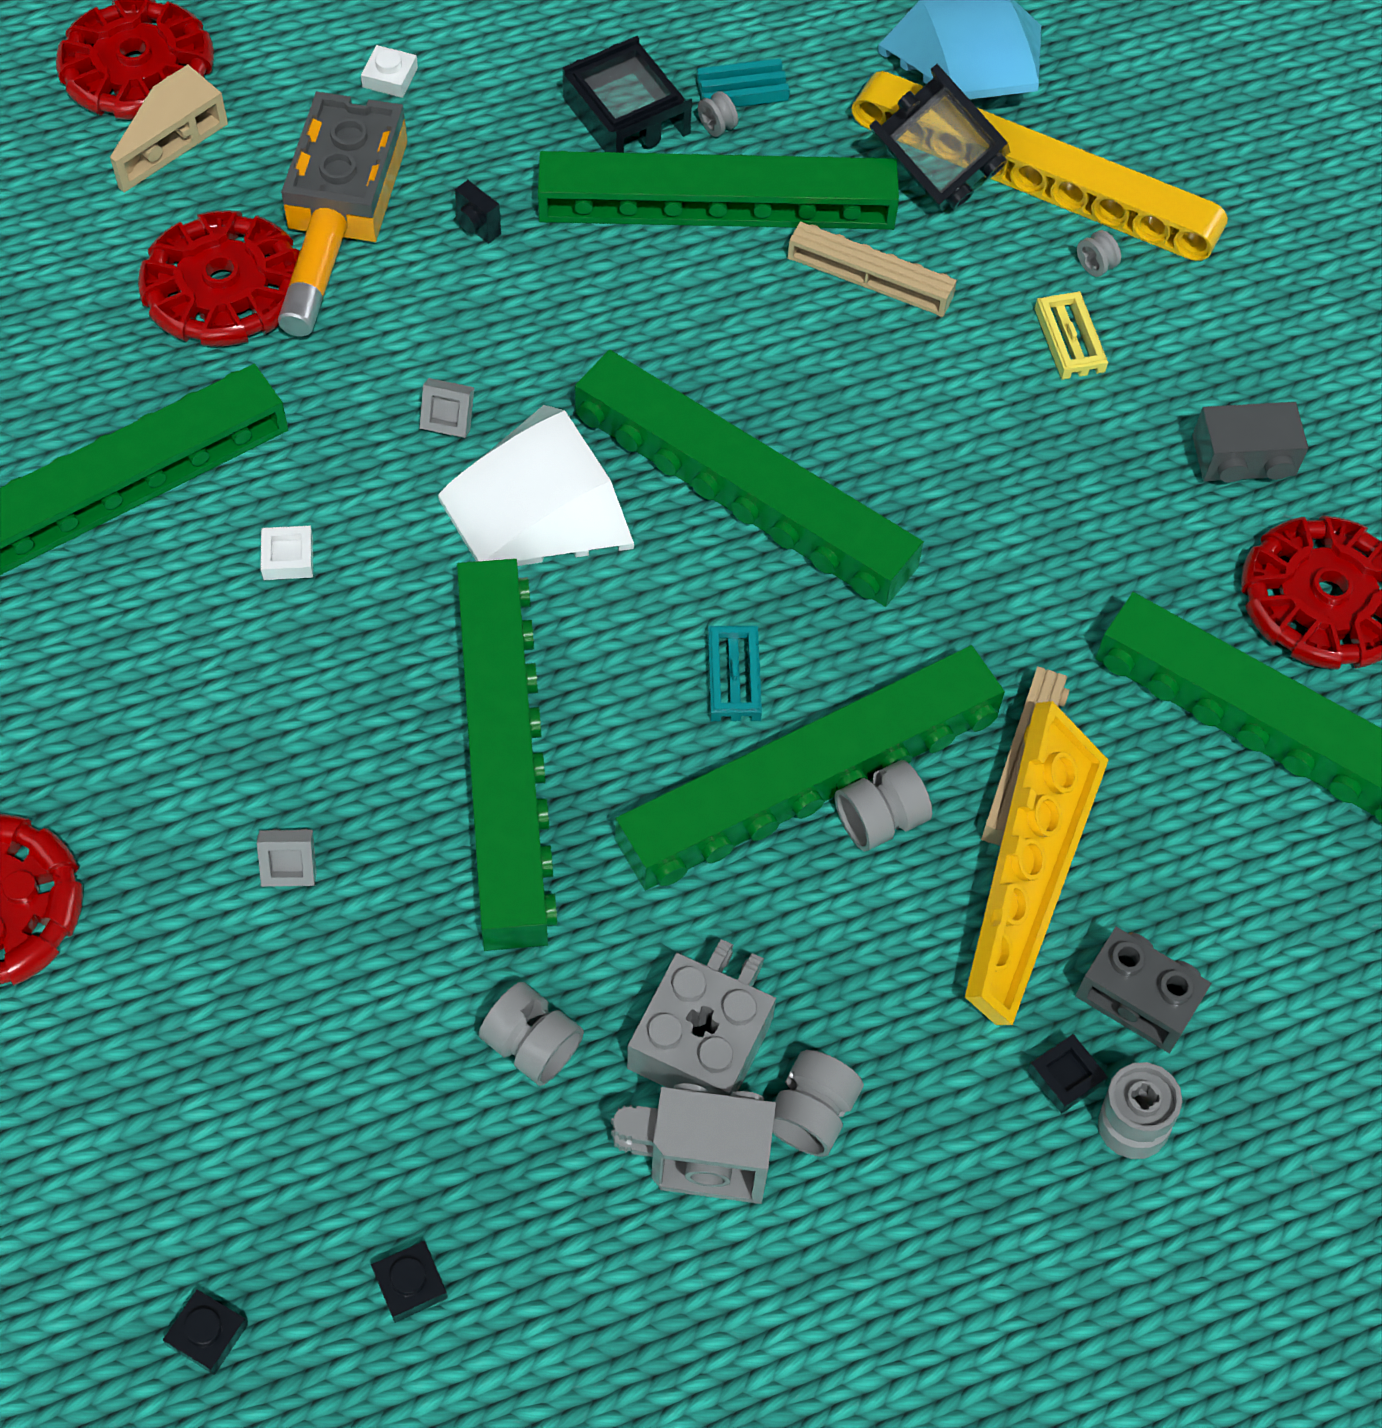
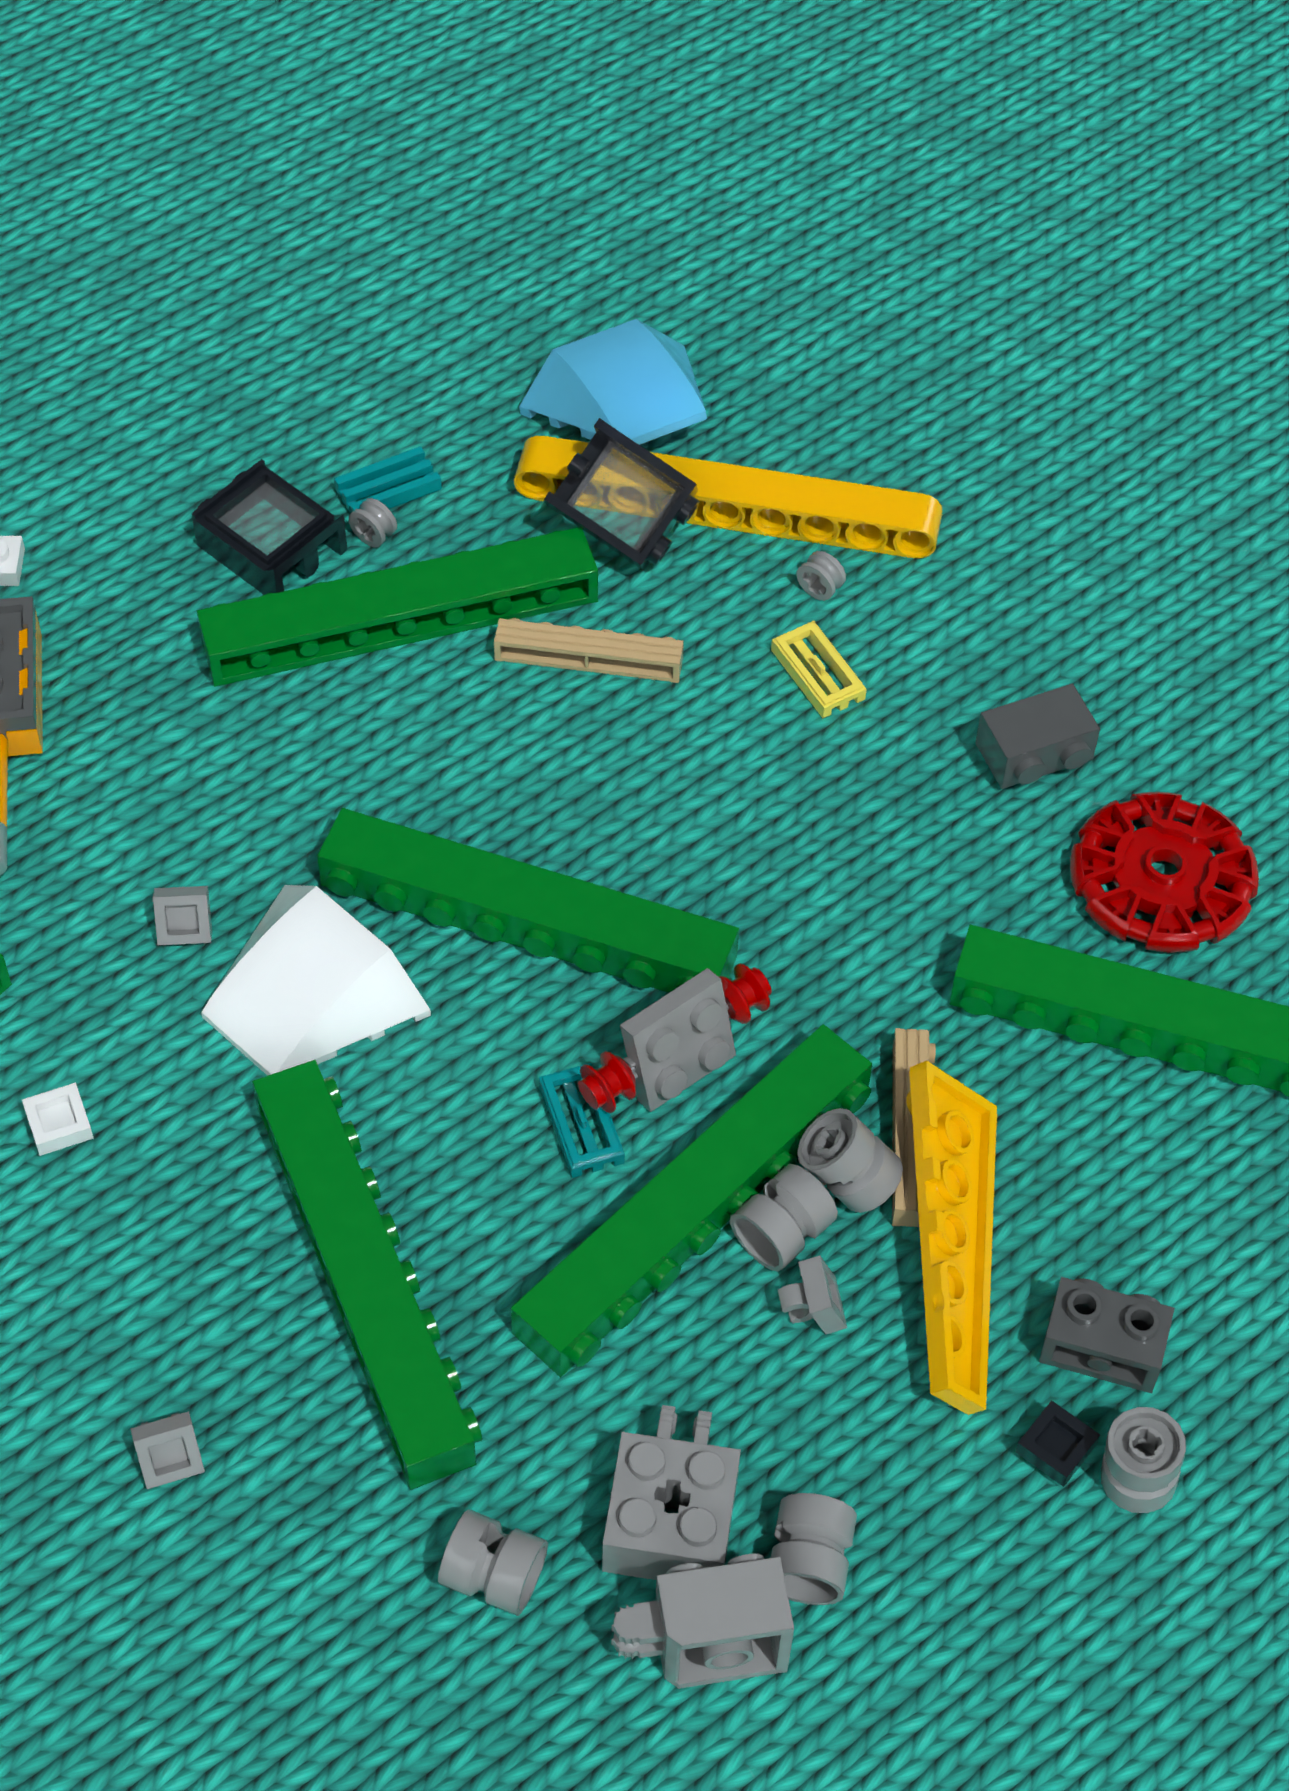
camera: 15 degrees left, 5 degrees down
(477, 212) = (146, 693): black plate -> none
(837, 624) = (676, 1040): none -> light grey plate
(889, 883) = (815, 1297): none -> light grey tile
(957, 771) = (850, 1160): none -> light grey wheel

